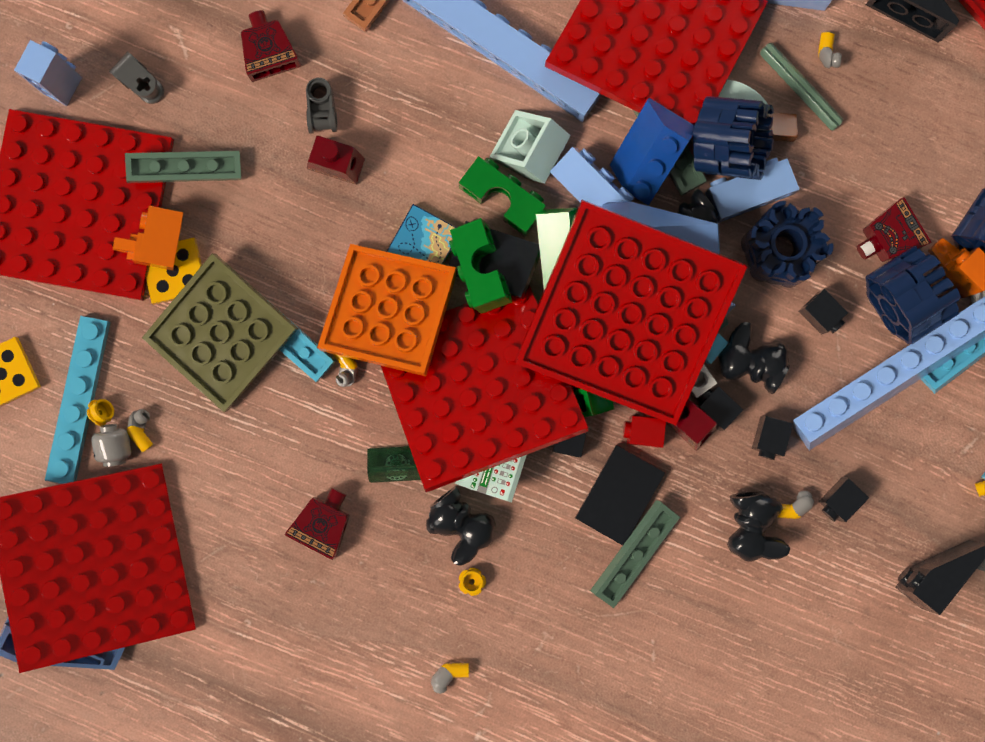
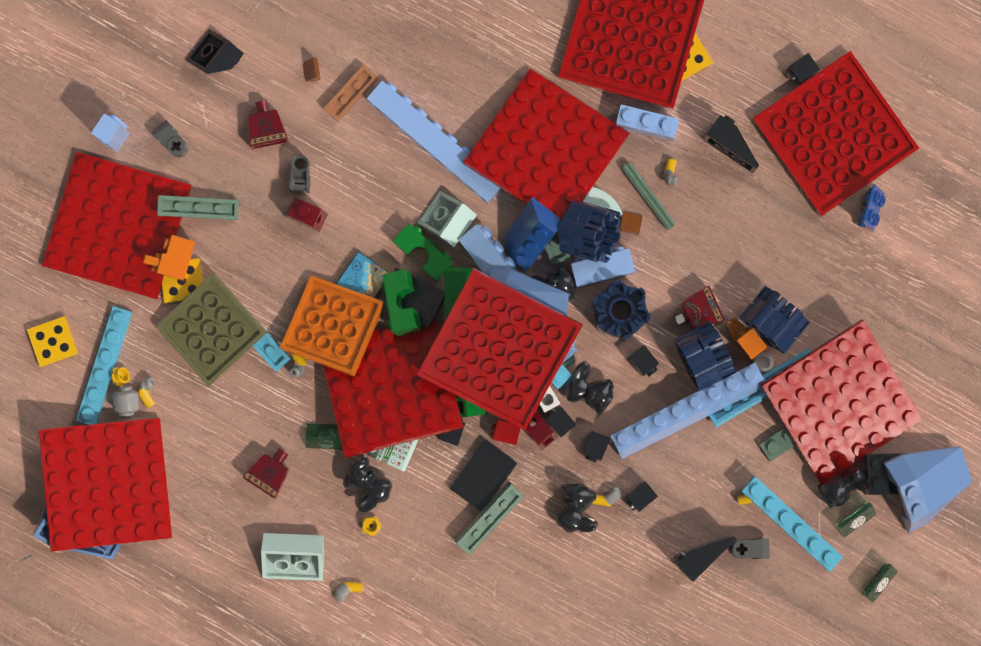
camera: 10 degrees right, 0 degrees up
(367, 637) = (292, 556): none -> light aqua slope

